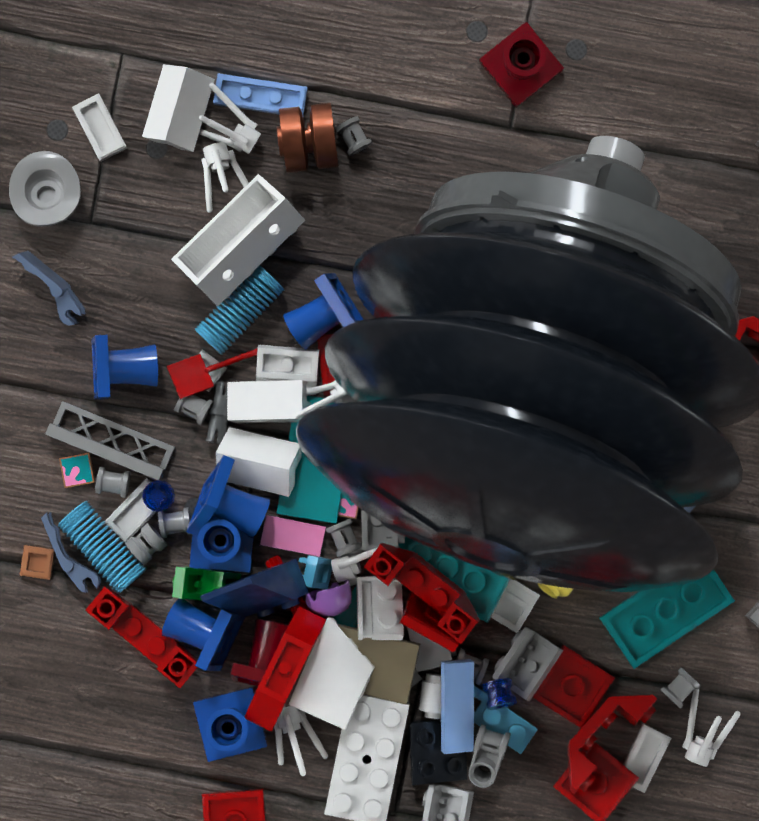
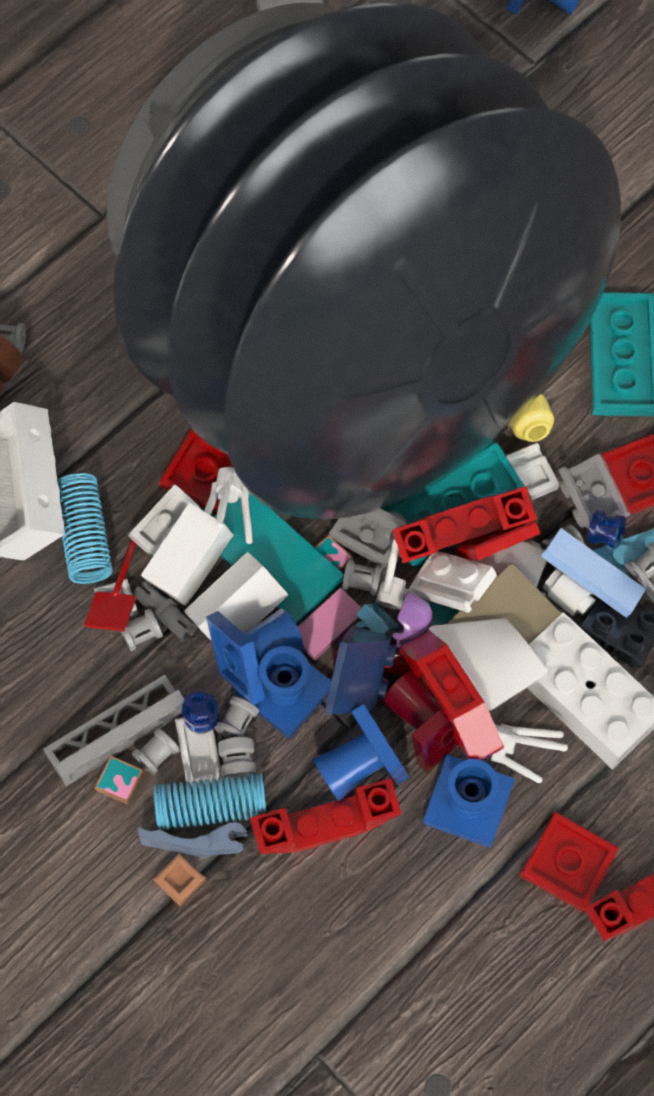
camera: 60 degrees left, 20 degrees down
(121, 366) = (46, 675): blue plant -> none
(194, 582) = (315, 730): green brick -> none
(323, 313) = (143, 446): blue plant -> none
(518, 79) = (54, 165): dark red plant -> none

